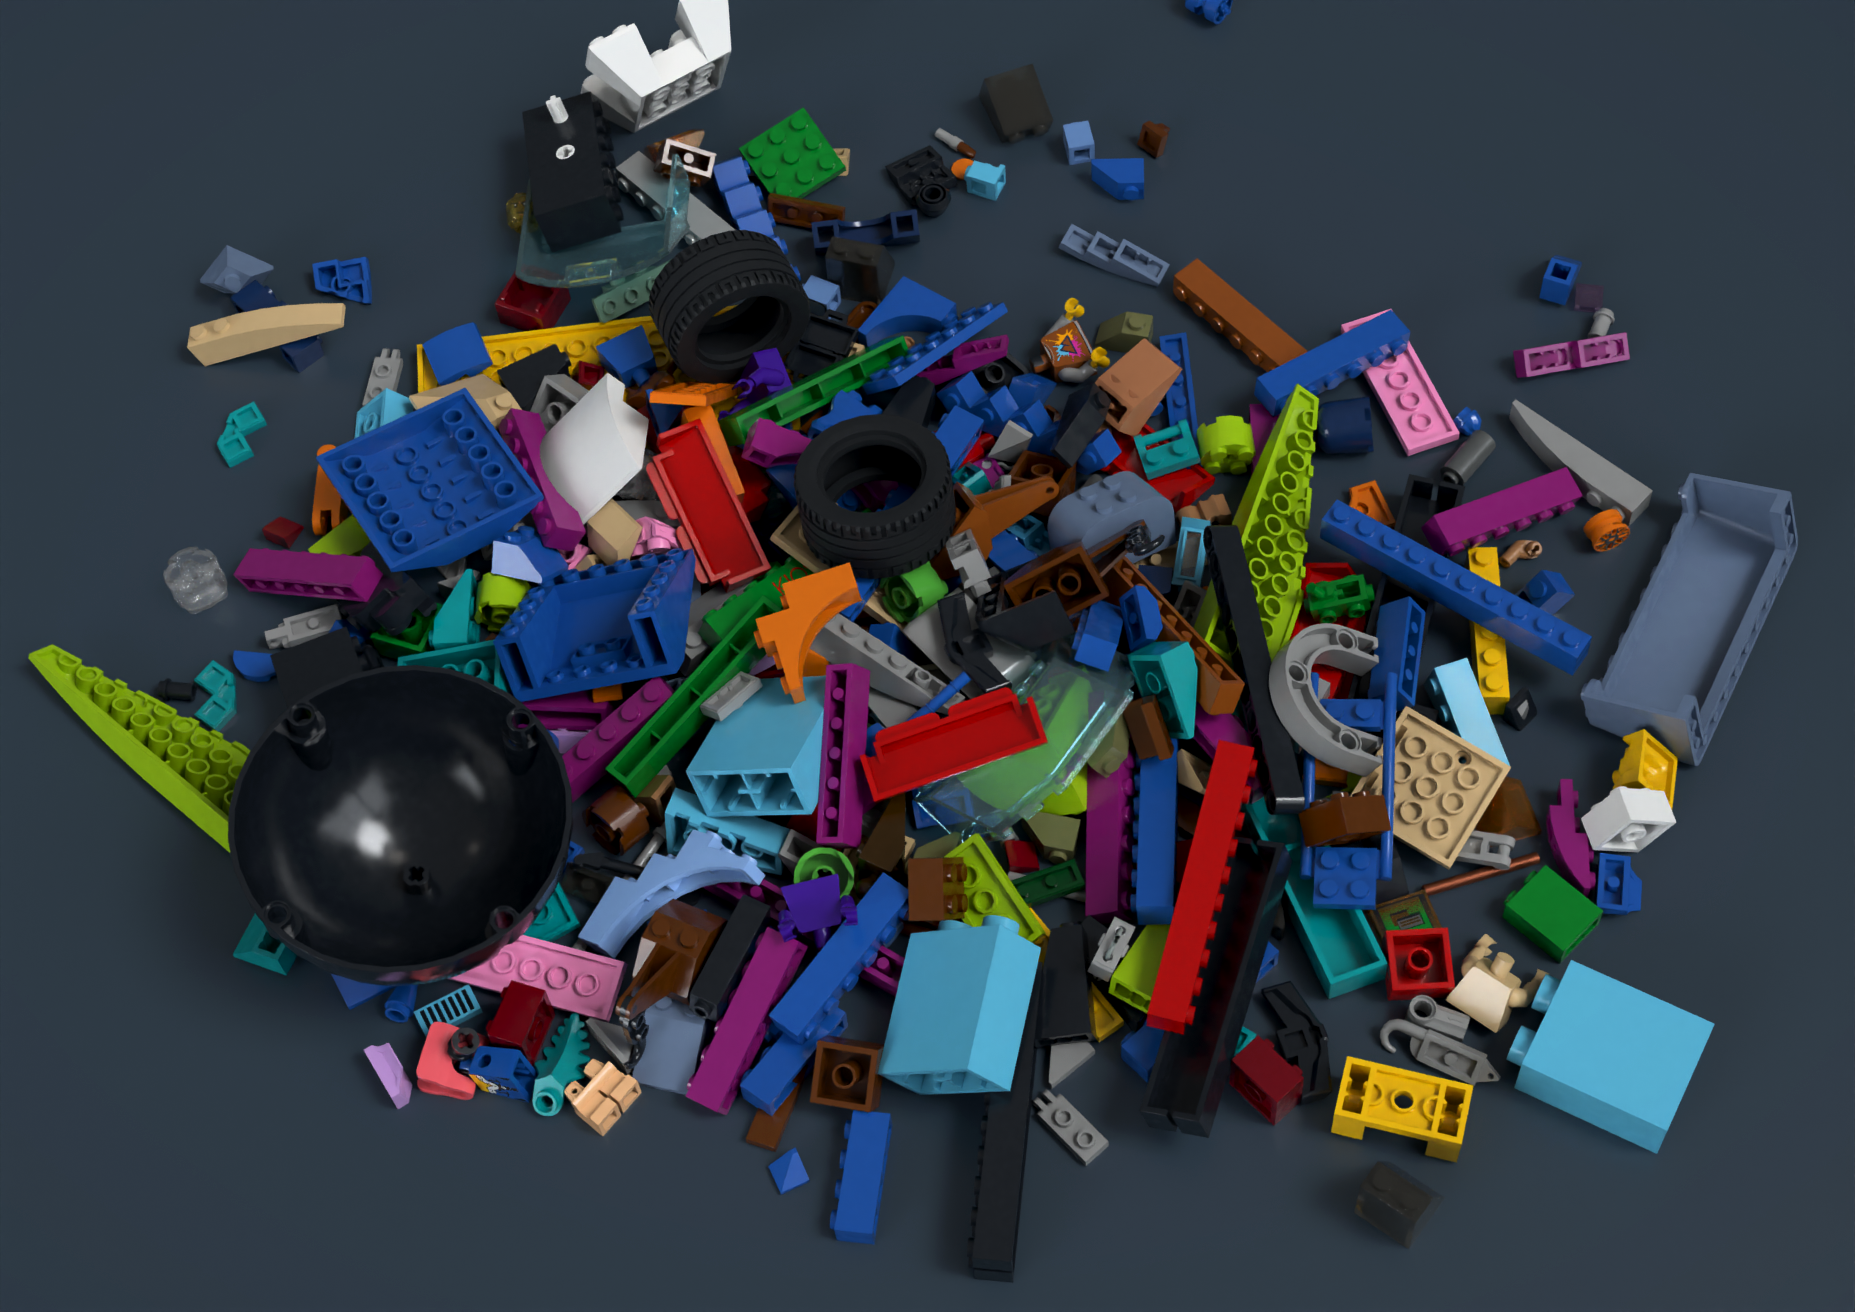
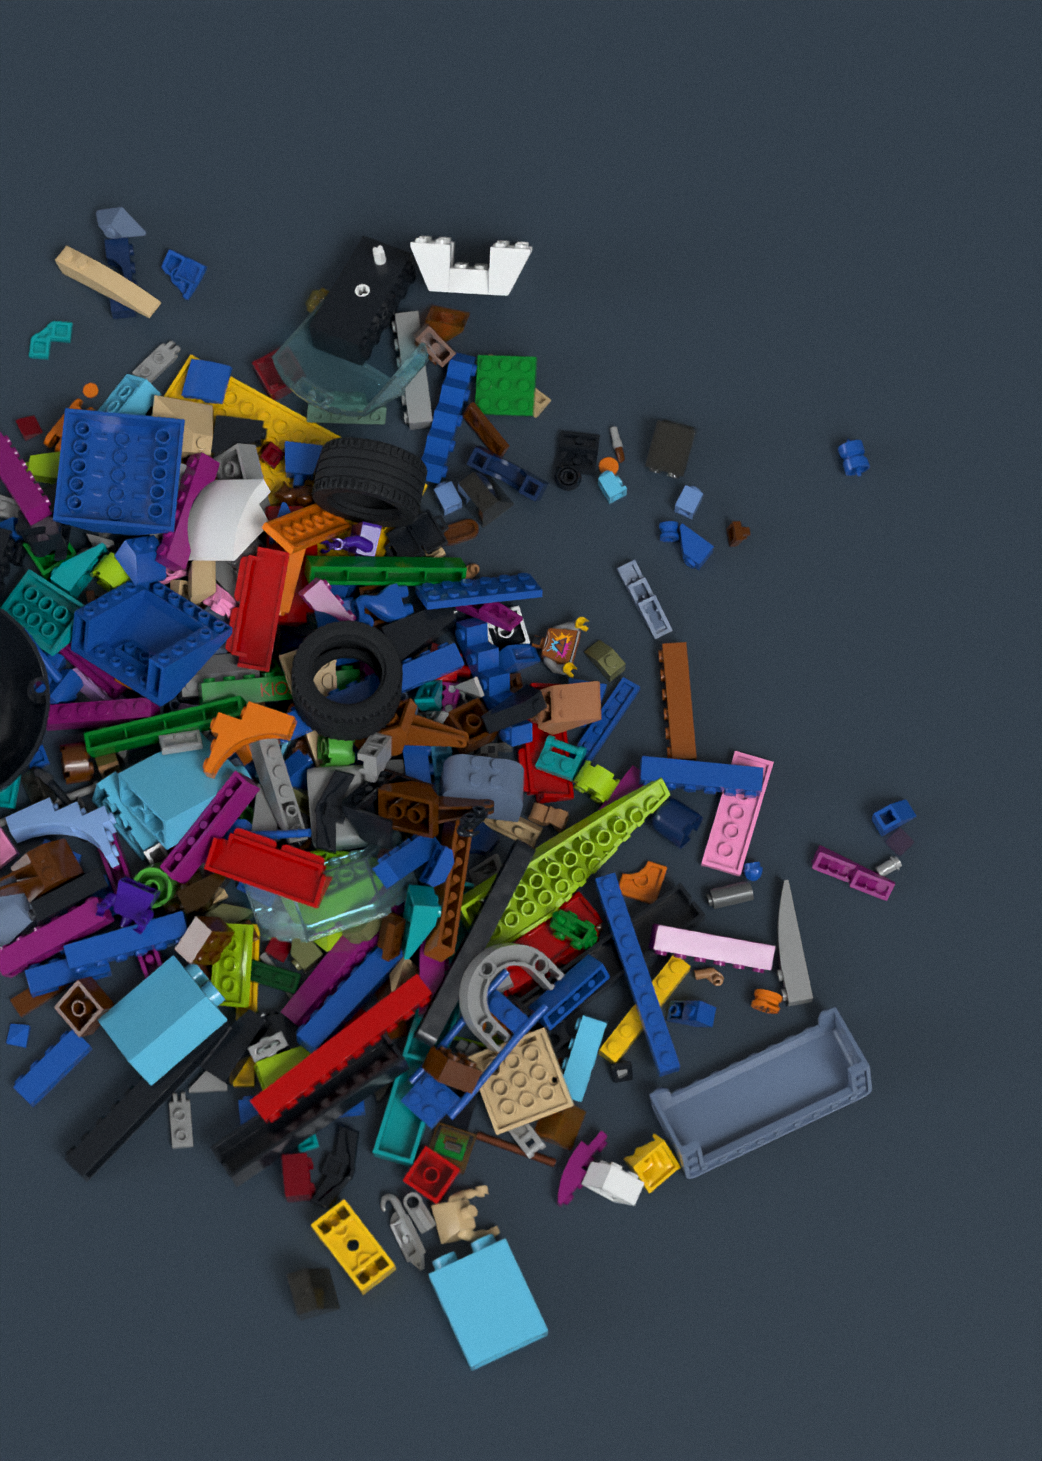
camera: 30 degrees right, 15 degrees up
(907, 309) = (491, 544): blue arch -> none
(1083, 180) = (669, 531): none -> blue wheel
(1190, 553) = (524, 830): medium azure window -> none
(1551, 913) = (531, 1201): green brick -> none
(1617, 885) = (580, 1213): blue slope -> none

